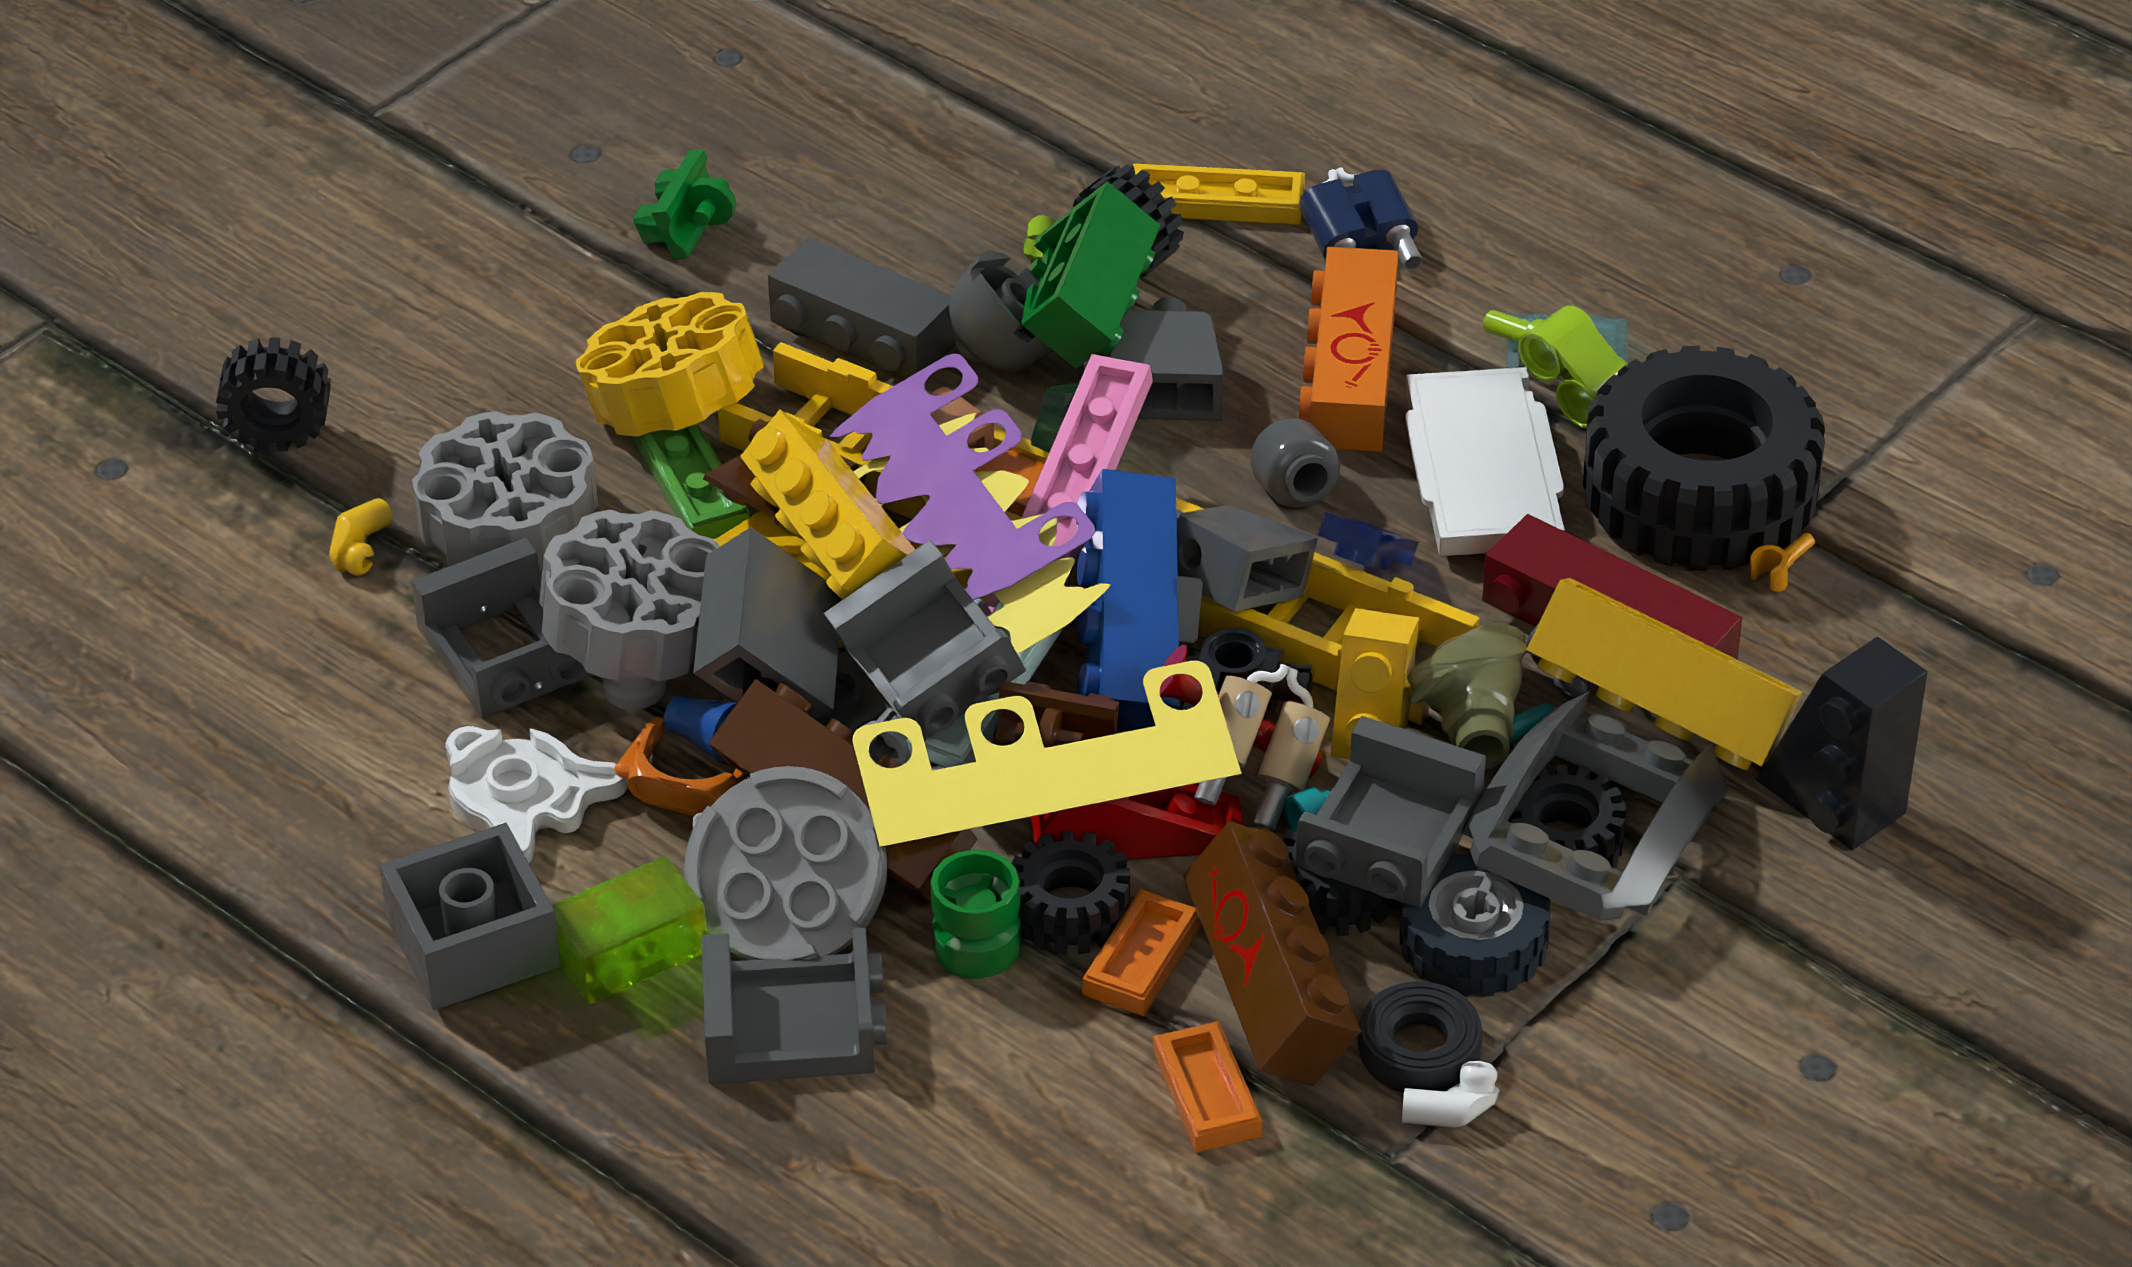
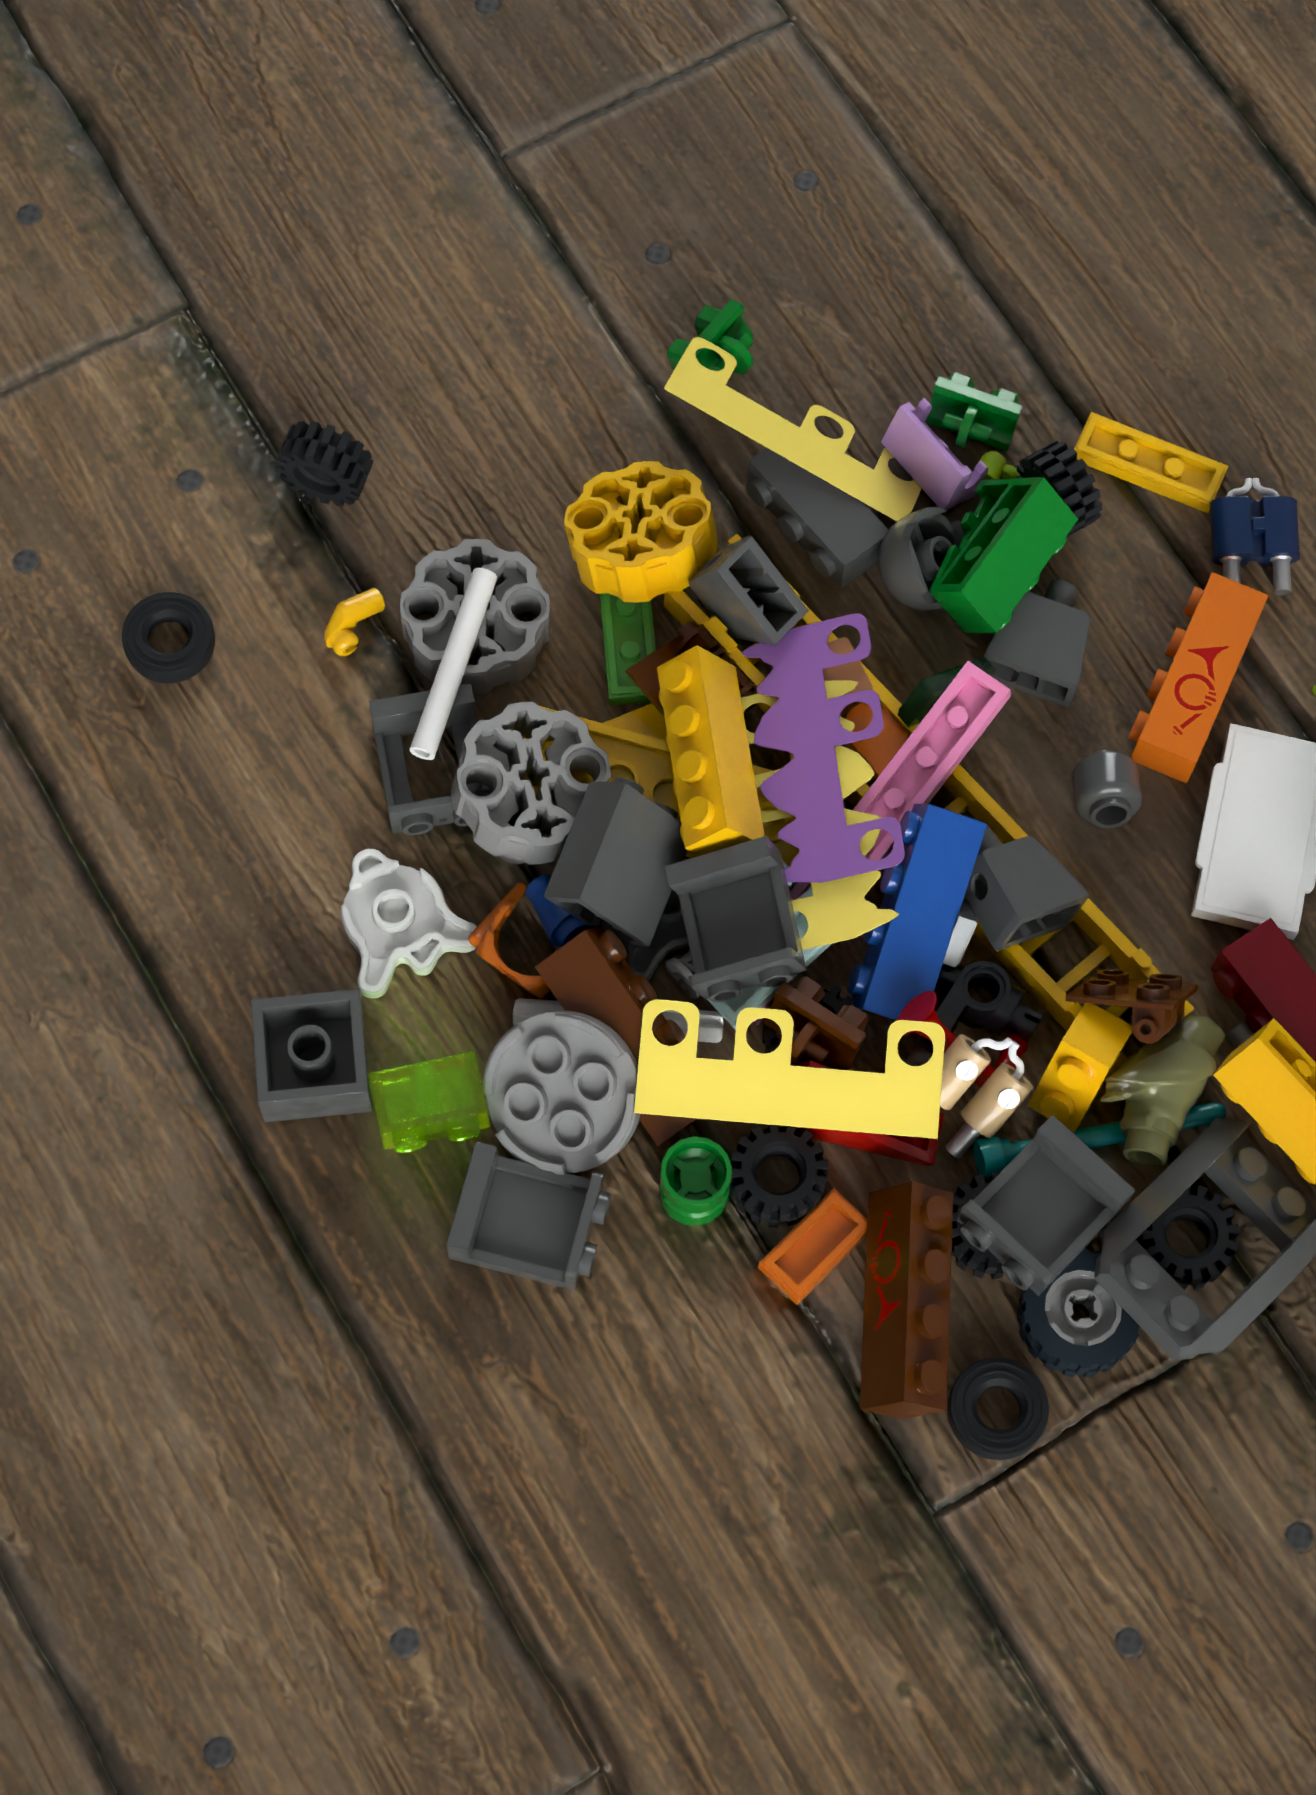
camera: 15 degrees right, 25 degrees up
(149, 630) = (168, 608): none -> black tyre
(499, 519) = (453, 664): none -> white piece
(815, 370) = (743, 586): none -> dark grey torso
(820, 243) = (801, 444): none -> light yellow piece
(966, 230) = (929, 458): none -> lavender hinge
(1001, 191) = (974, 412): none -> green hips
(1207, 1086) = (819, 1397): orange tile -> none
(1366, 542) = (1133, 898): clear blue plate -> none
(1430, 590) = (1155, 1002): none -> reddish brown hinge
(1458, 1104) = (1005, 1483): white arm -> none

